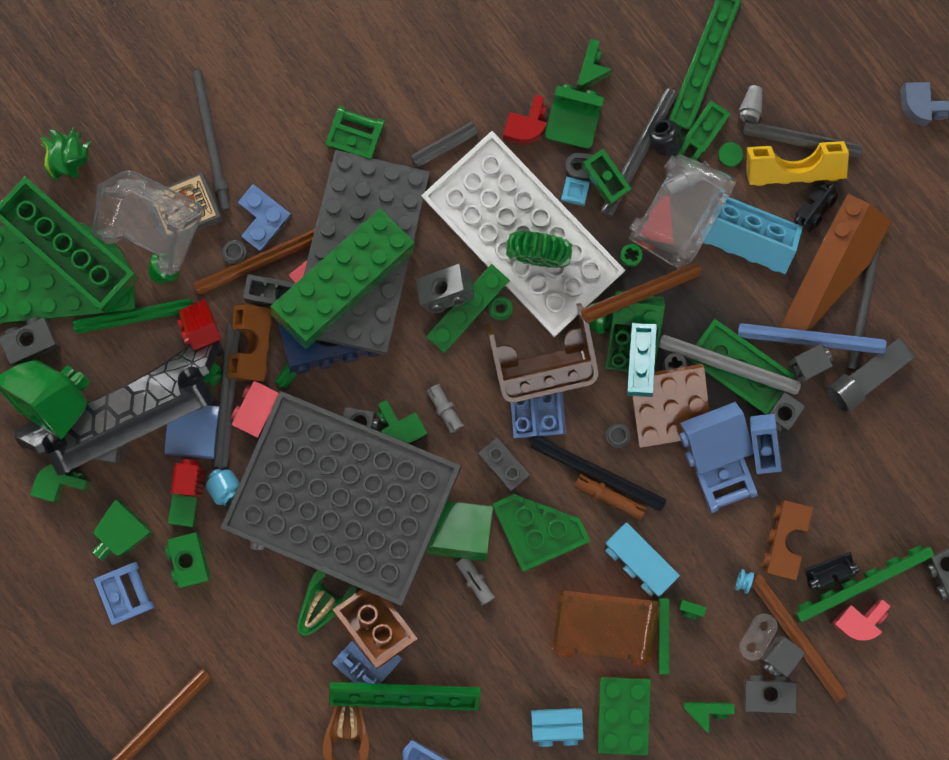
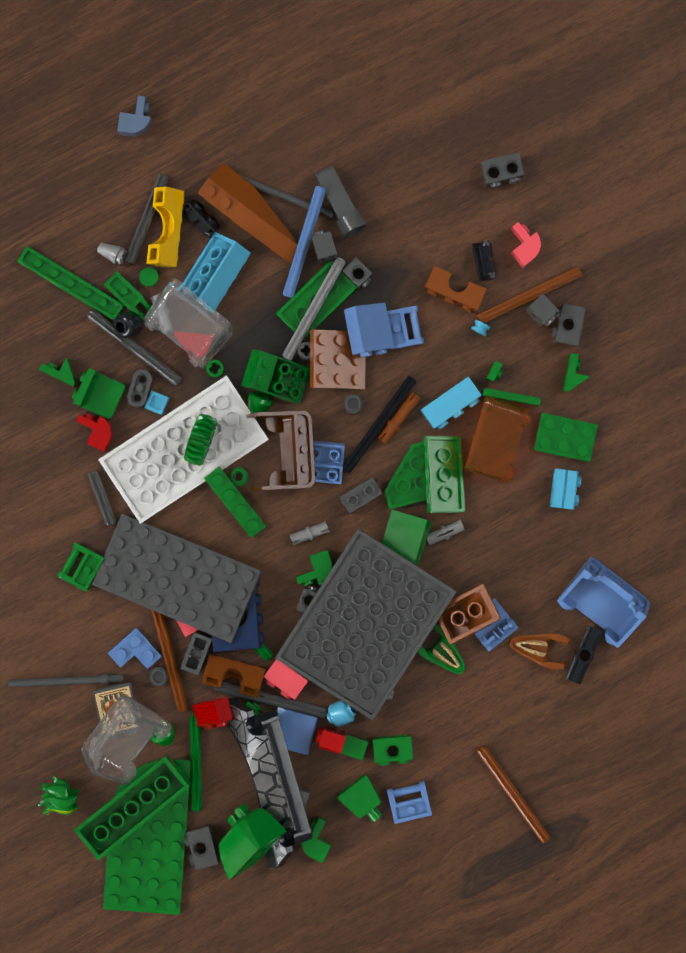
camera: 85 degrees left, 5 degrees up
(342, 278) = (198, 595): green brick -> none
(404, 696) = (523, 601): green tile -> none
(432, 288) = (214, 527): dark grey brick -> none
(548, 566) = (444, 474): none -> green tile
(606, 177) = (152, 377): green brick -> none
(640, 292) = (247, 367): dark orange axle -> none
(642, 360) = (300, 375): plate -> none
(759, 638) = (524, 324): clear plate -> none
(765, 443) = (379, 292): medium blue brick -> none
(852, 587) = (499, 245): green plate -> none

